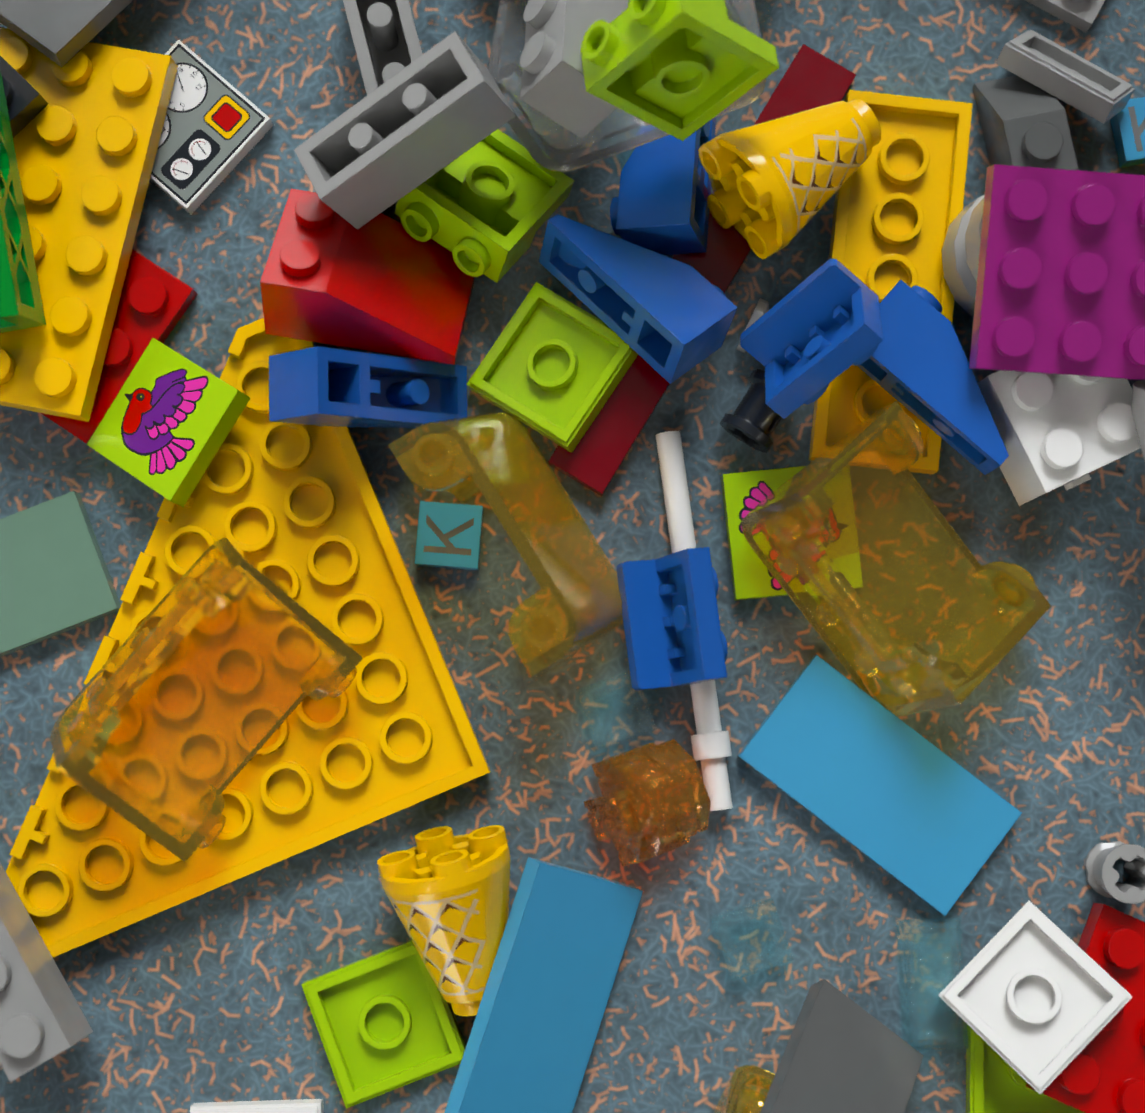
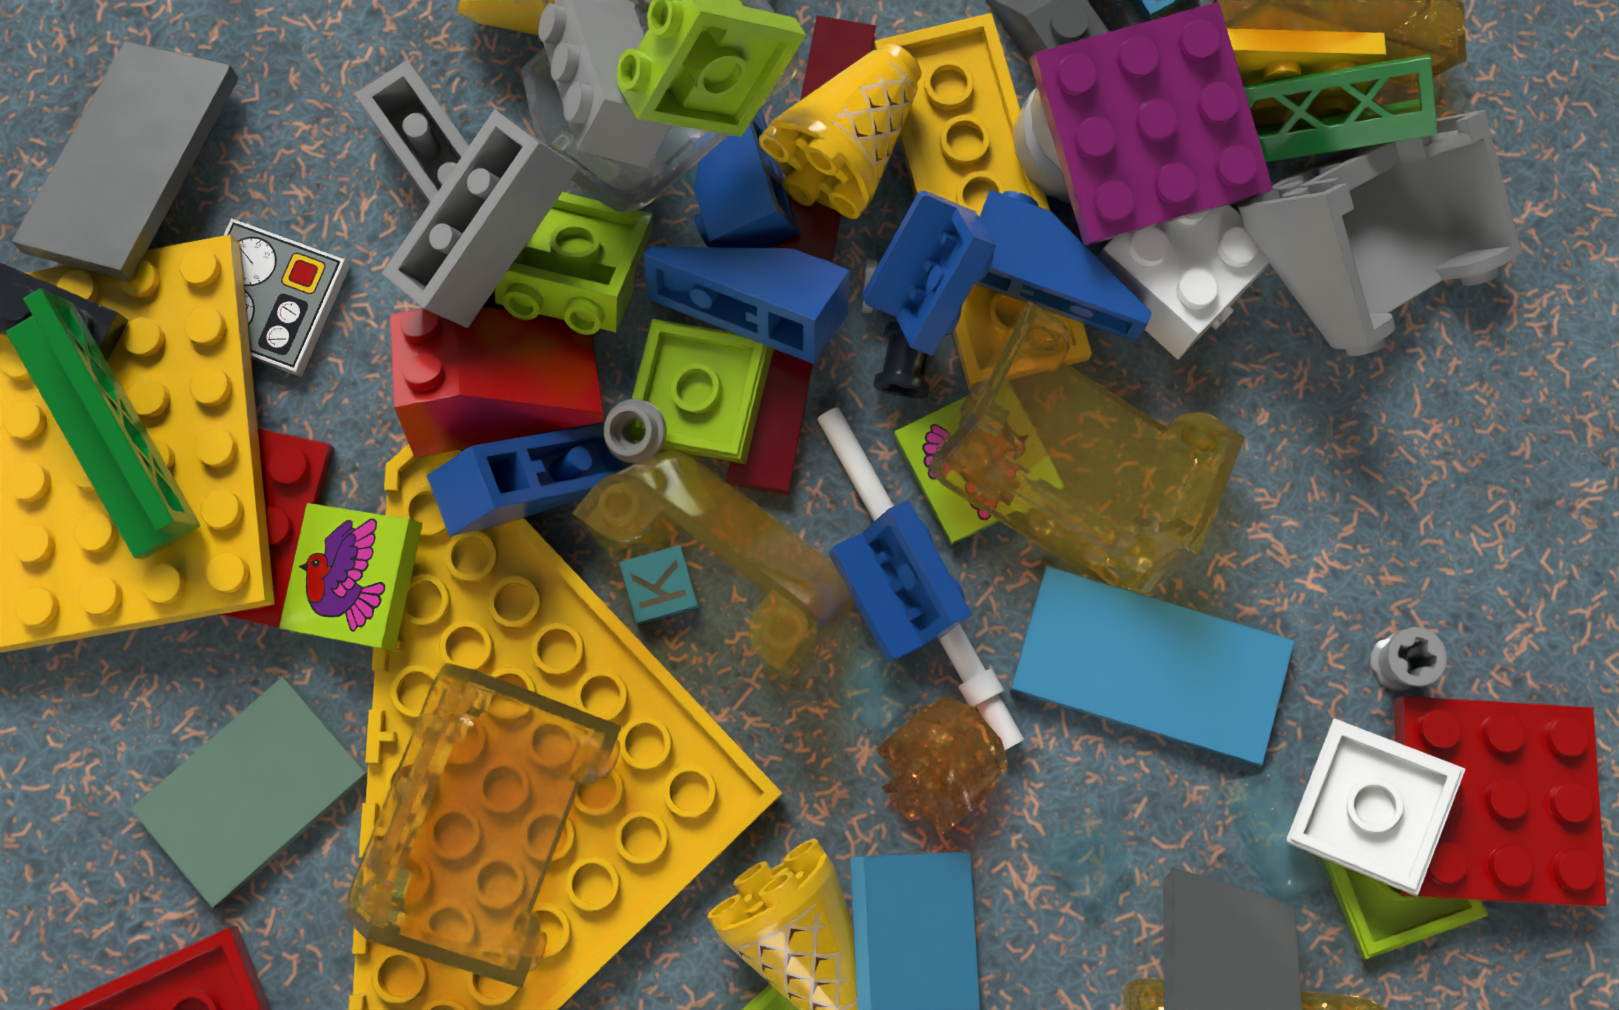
camera: 20 degrees left, 5 degrees down
(462, 381) = (618, 430): none -> light grey plate

